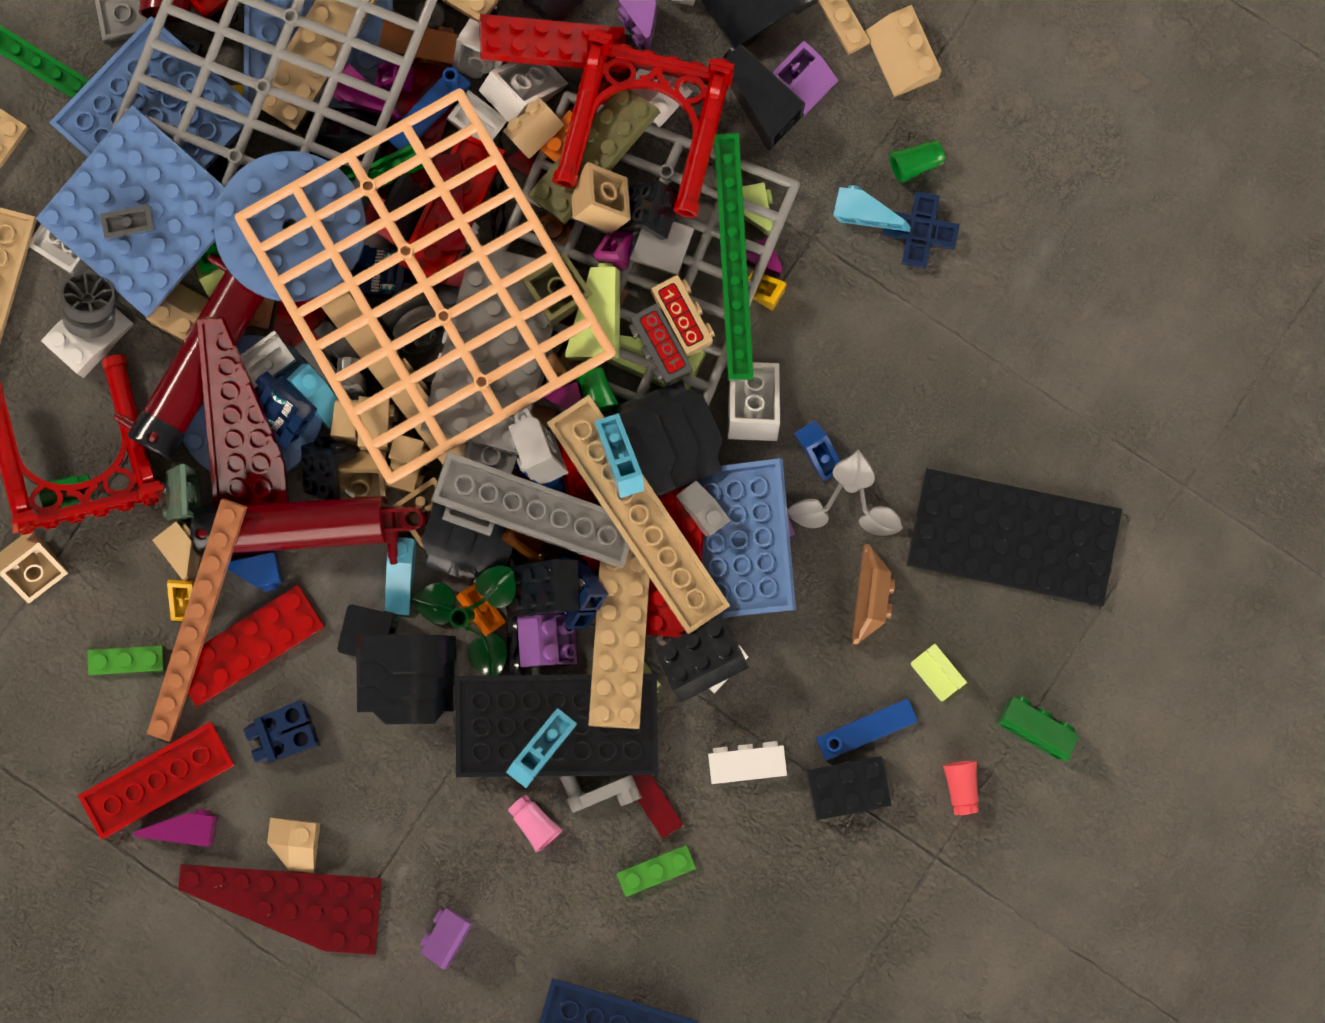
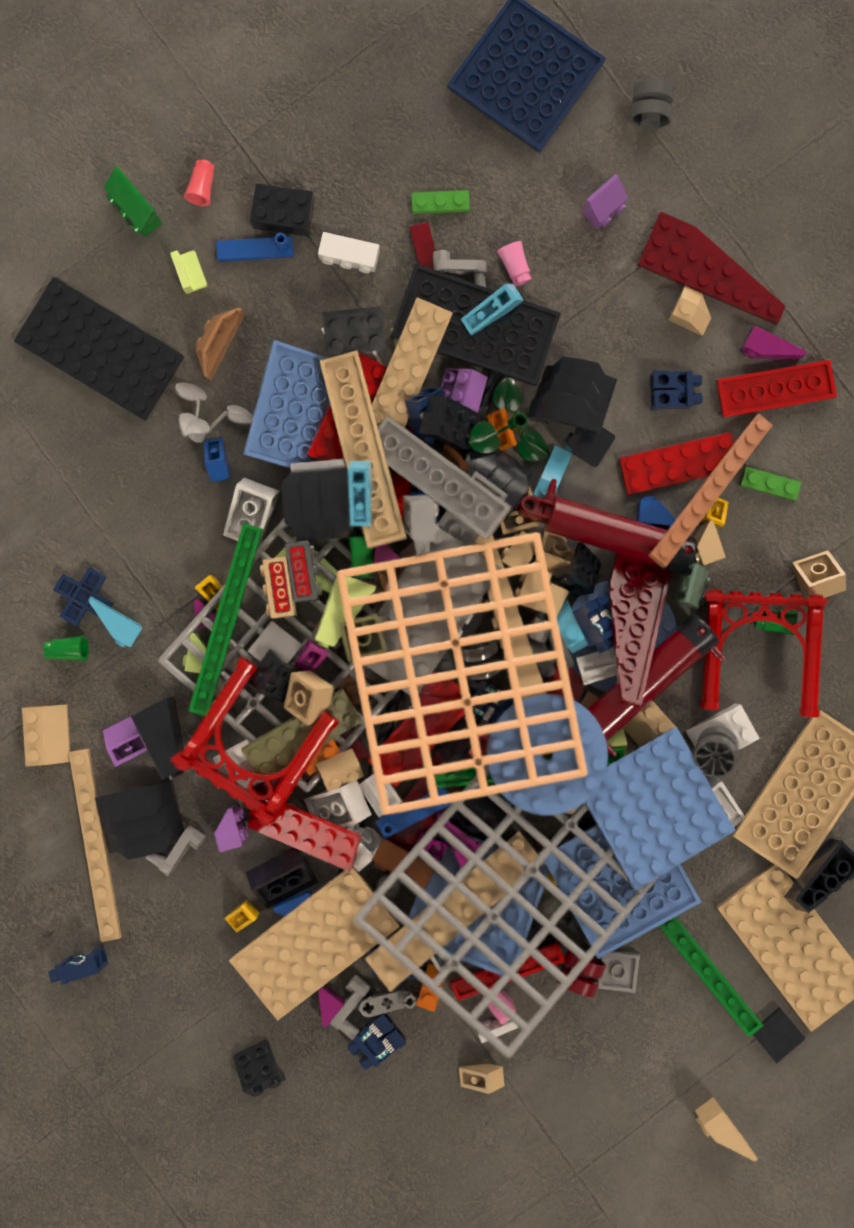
camera: 170 degrees left, 5 degrees up
(127, 221) = (668, 800): dark grey plate -> none
(703, 508) = (313, 436): light grey slope -> none

